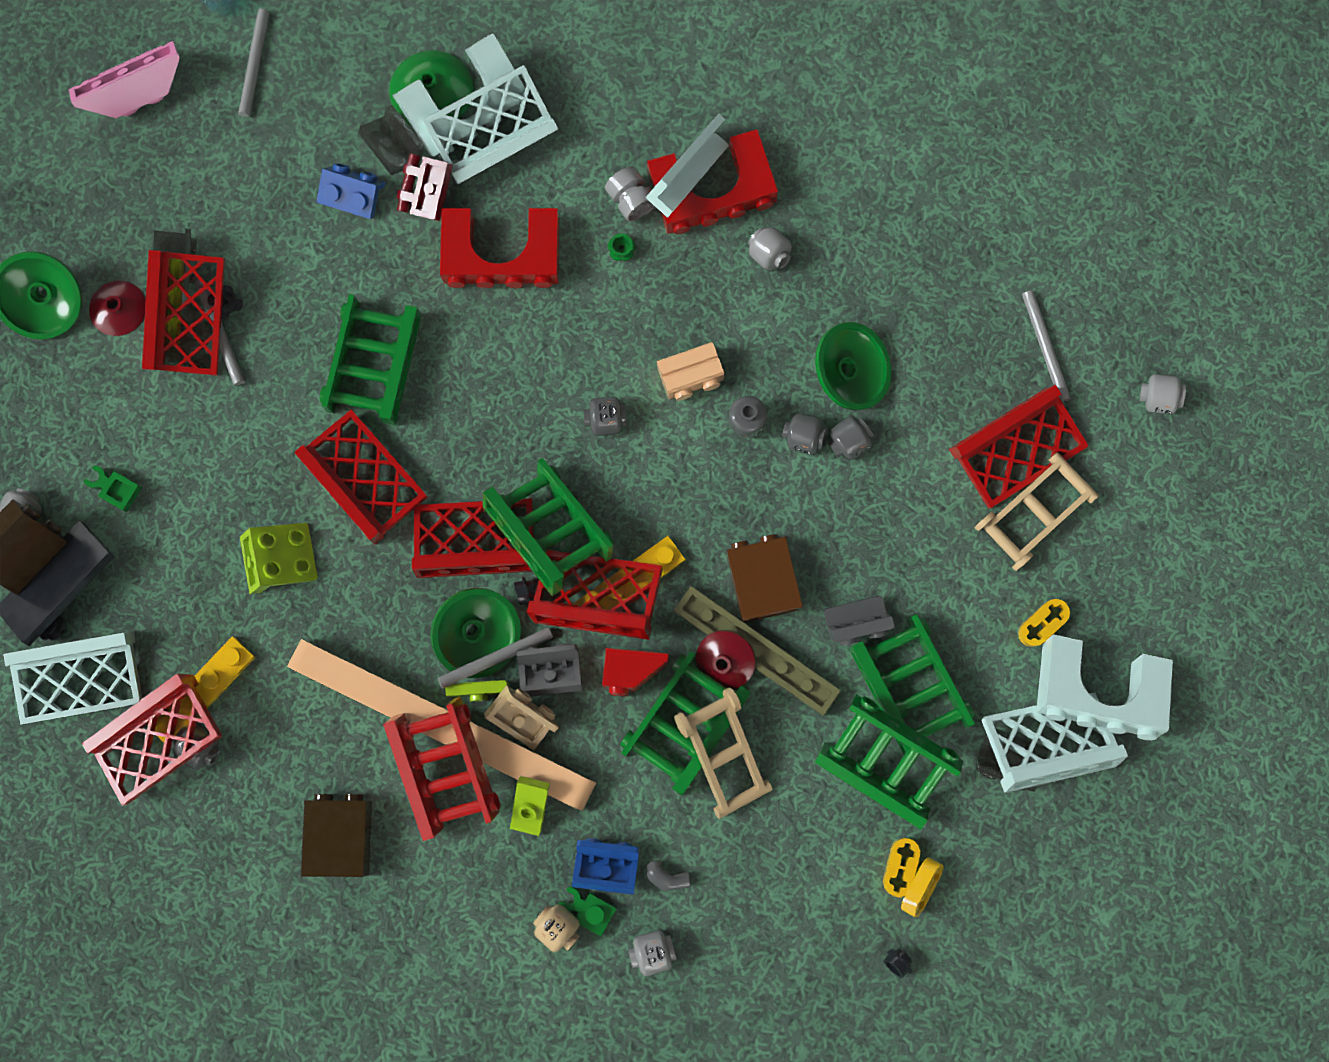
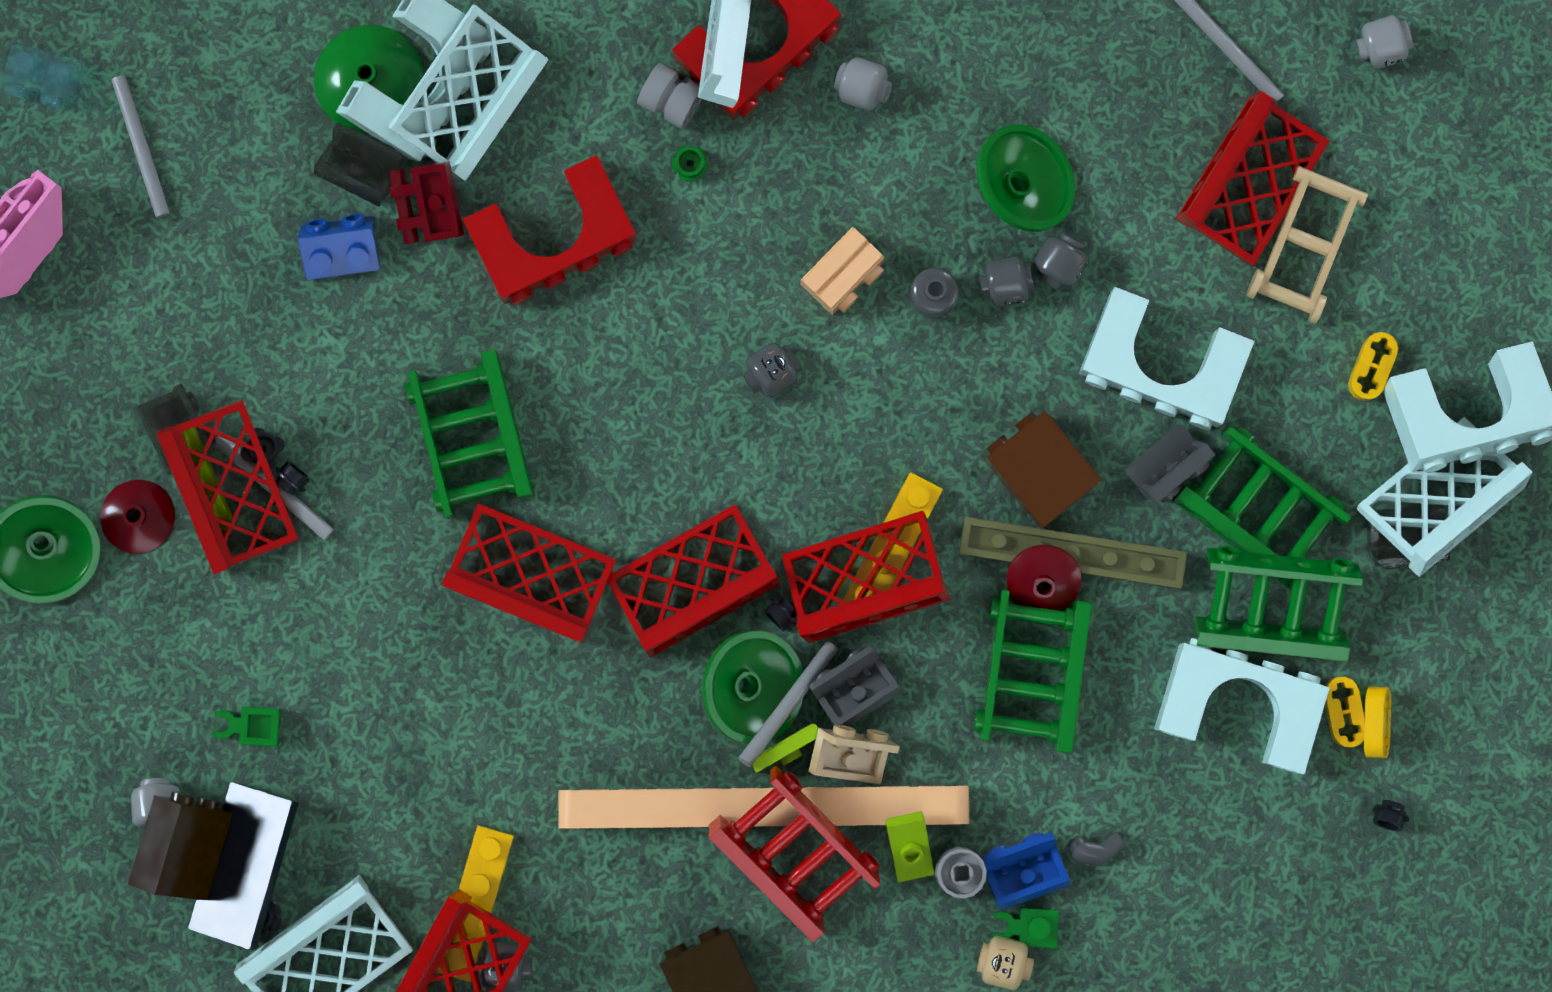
camera: 30 degrees left, 5 degrees up
(234, 331) = (291, 478): none -> black plate
(277, 556) = (481, 711): lime bracket -> none
(534, 550) = (773, 563): green fence -> none
(556, 843) = (960, 872): none -> light grey wheel
(630, 669) = (947, 644): red slope -> none
(652, 953) = (1121, 937): light grey head -> none
(687, 726) = (1076, 628): tan piece -> none
(868, 839) = (1294, 700): none -> light aqua arch
(904, 583) = (1113, 363): none -> light aqua arch

